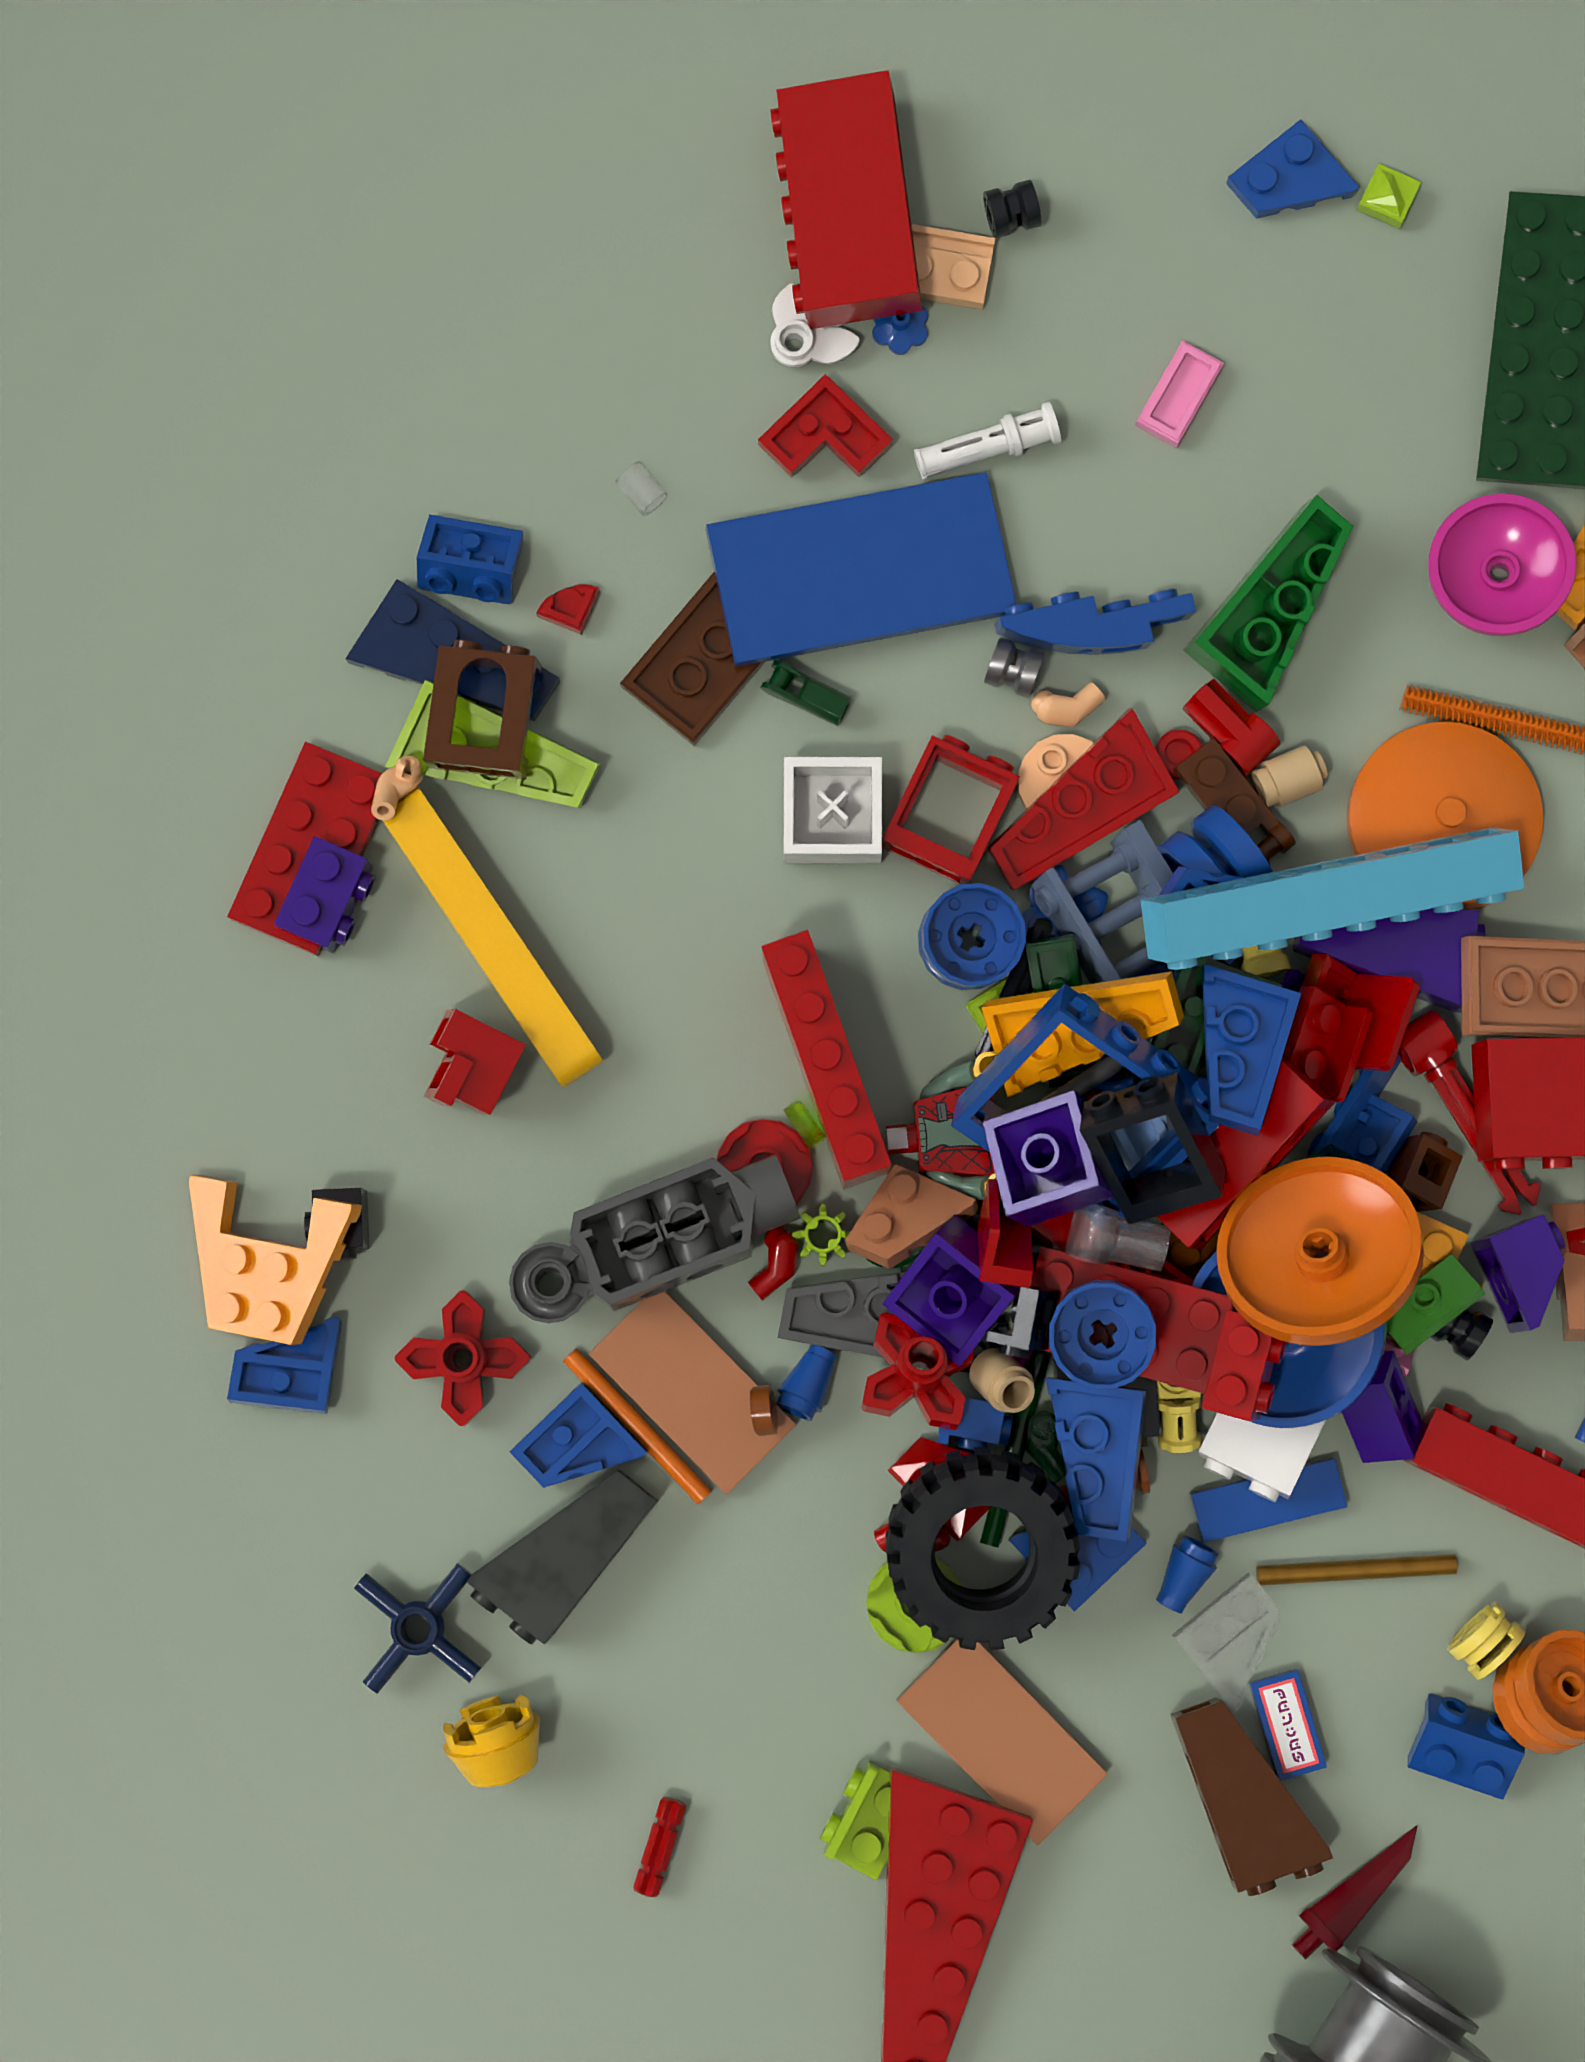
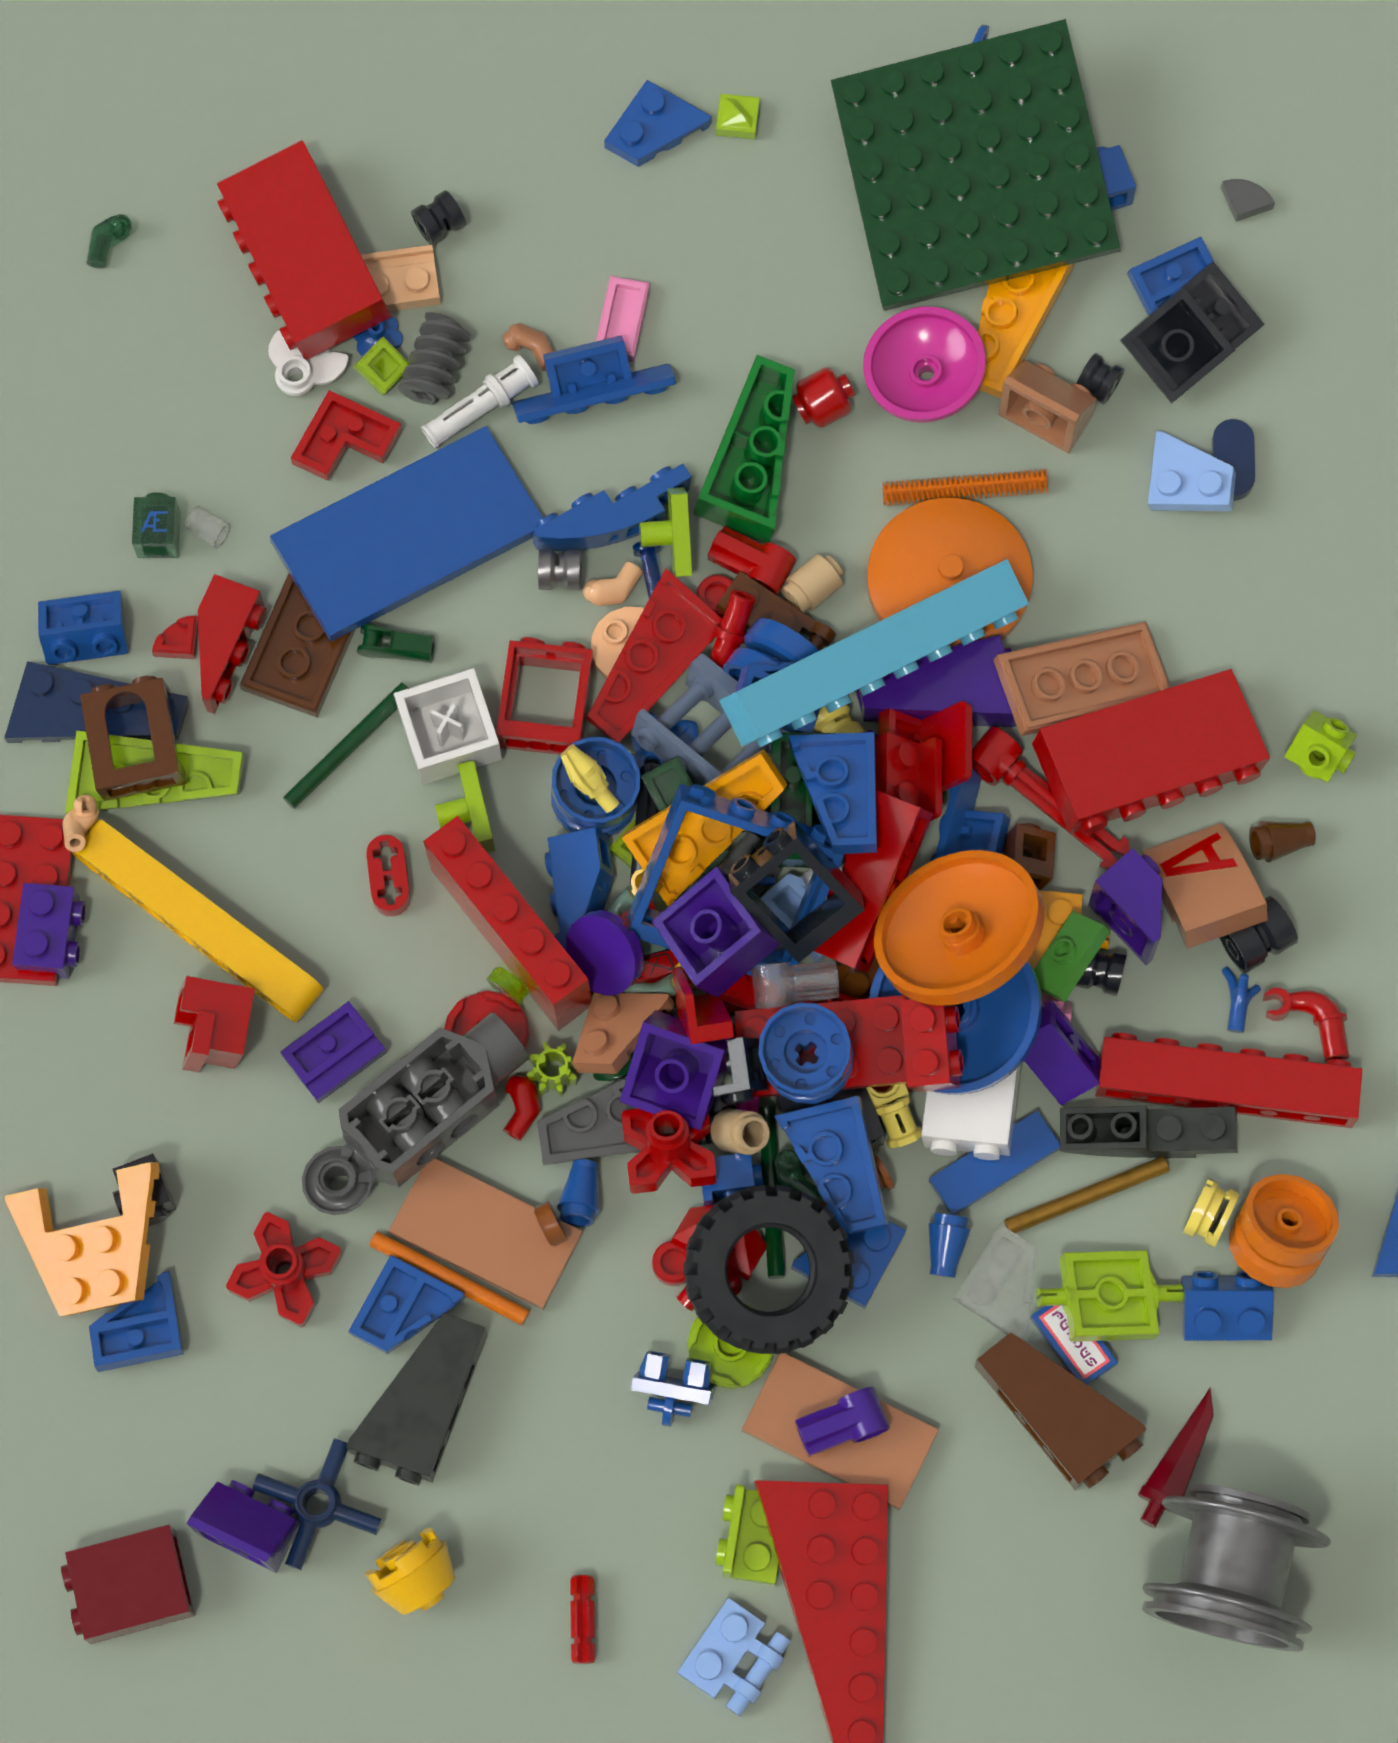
camera: 20 degrees left, 10 degrees down
(190, 1646) = (127, 1584): none -> dark red brick
(332, 1627) = (245, 1525): none -> dark purple slope
(585, 469) = (156, 526): none -> clear green brick
(591, 1135) = (333, 1052): none -> dark purple plate
(623, 612) = (224, 628): none -> red slope
(634, 109) = (105, 236): none -> clear green arm
(702, 952) = (378, 876): none -> red beam
(715, 791) = (343, 749): none -> dark green bar
(795, 1931) = (722, 1649): none -> light blue plate
(824, 910) = (469, 808): none -> lime tile
(835, 1636) = (654, 1380): none -> hips
(879, 1492) = (668, 1264): none -> red tile
(893, 363) = (381, 366): none -> lime tile
(920, 1133) = (605, 952): none -> dark purple tile
(921, 1036) = (580, 874): none -> blue slope
(953, 375) = (432, 359): none -> dark grey piece
(967, 928) = (588, 777): none -> light yellow piece
(1020, 1736) = (853, 1418): none -> dark purple piece
(1072, 388) = (530, 338): none -> nougat arm
(1116, 692) = (649, 564): none -> clear blue piece
(1120, 454) = (589, 377): none -> blue bracket
(1153, 669) = (672, 532): none -> lime tile
(1181, 805) = (731, 630): none -> red pin
(1343, 1693) = (1109, 1295): none -> lime plate
(1374, 564) = (823, 397): none -> red head
(1449, 1525) = (1148, 1132): none -> pearl dark grey slope

